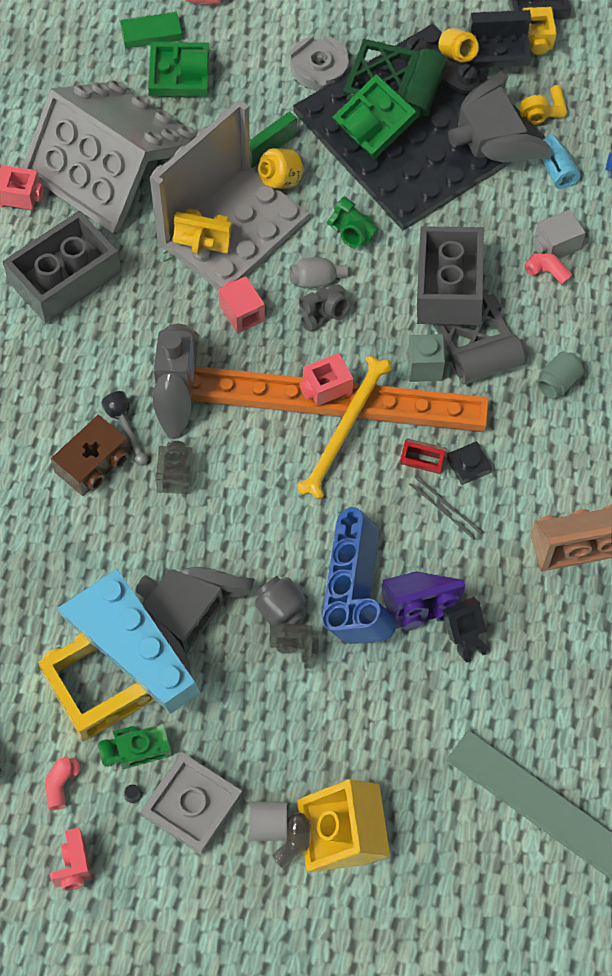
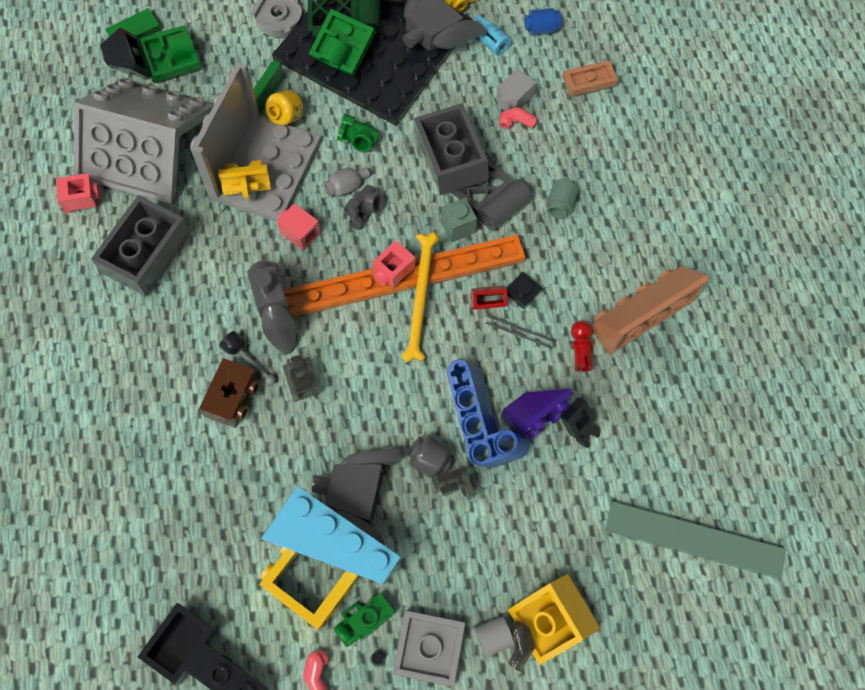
camera: 25 degrees left, 5 degrees up
(130, 54) = (125, 54): none -> black slope
(515, 532) = (582, 346): none -> red pin

